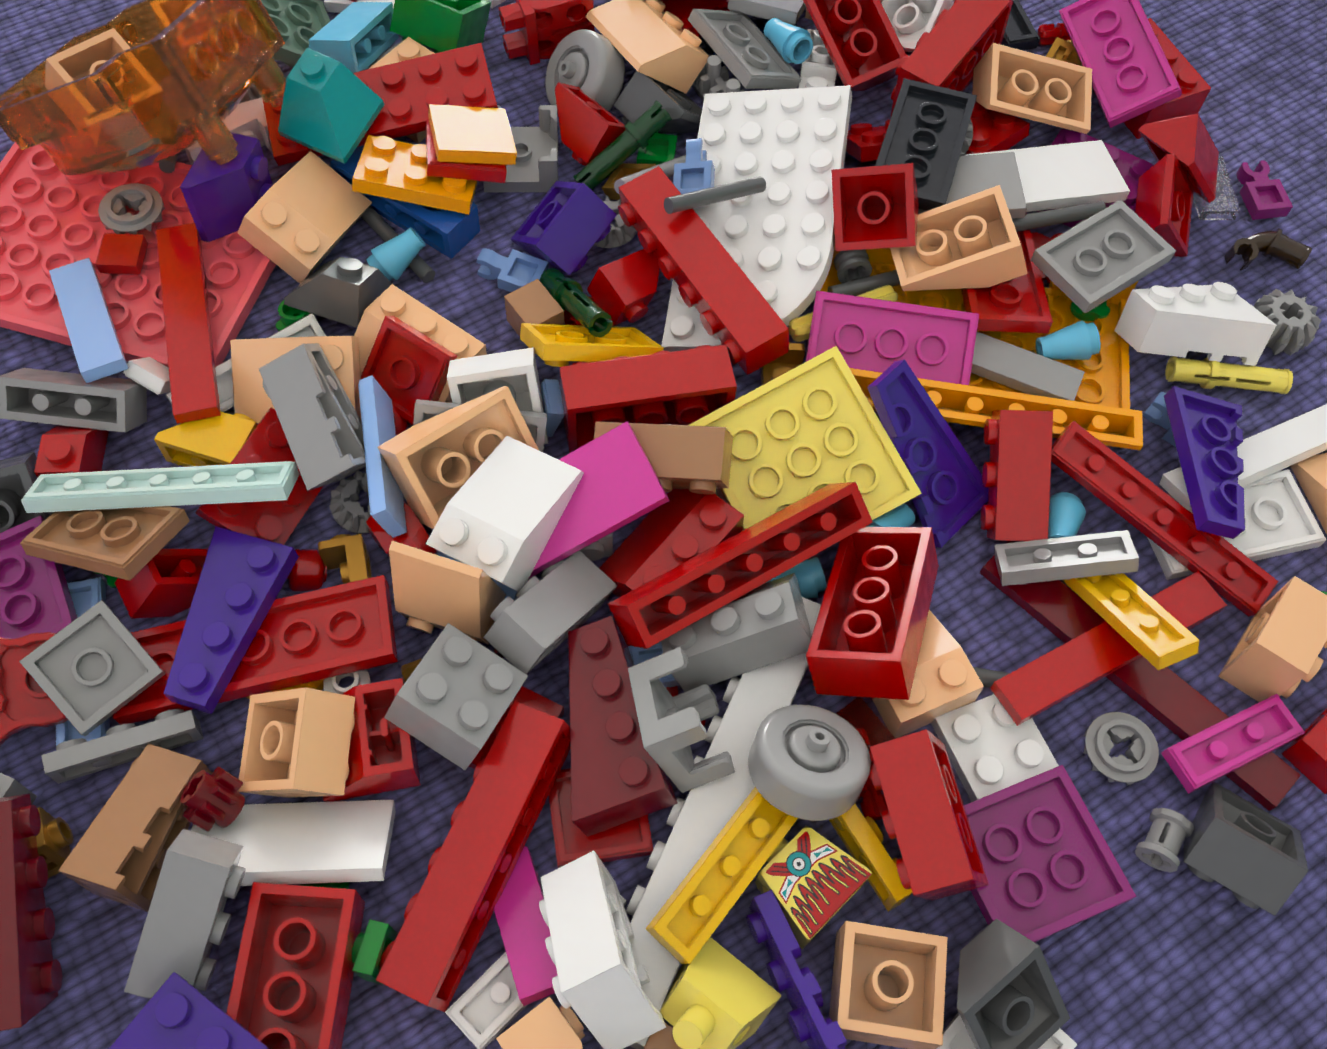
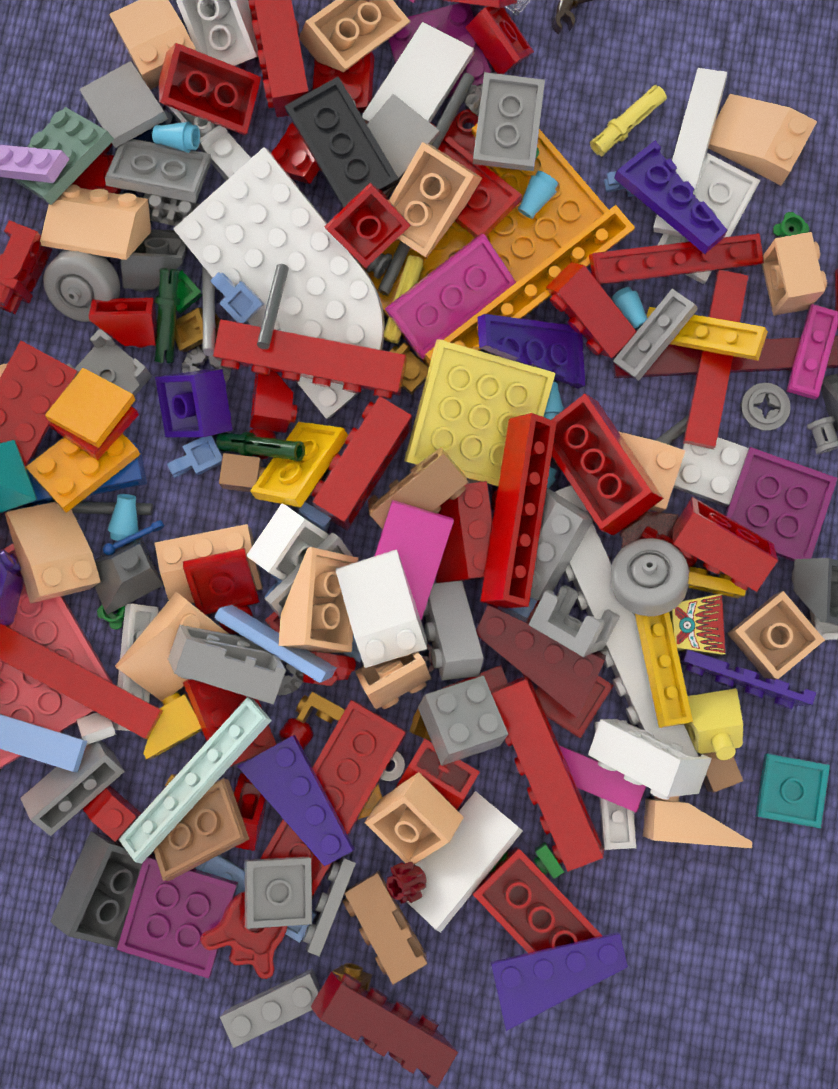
camera: 45 degrees left, 20 degrees up
(186, 913) = (462, 938): light grey brick -> none
(412, 282) = (109, 548): none -> blue hinge
(1024, 369) = (530, 235): light grey tile -> none
(1195, 320) = (587, 109): white wedge -> none
(1294, 321) = (629, 42): light grey gear -> none

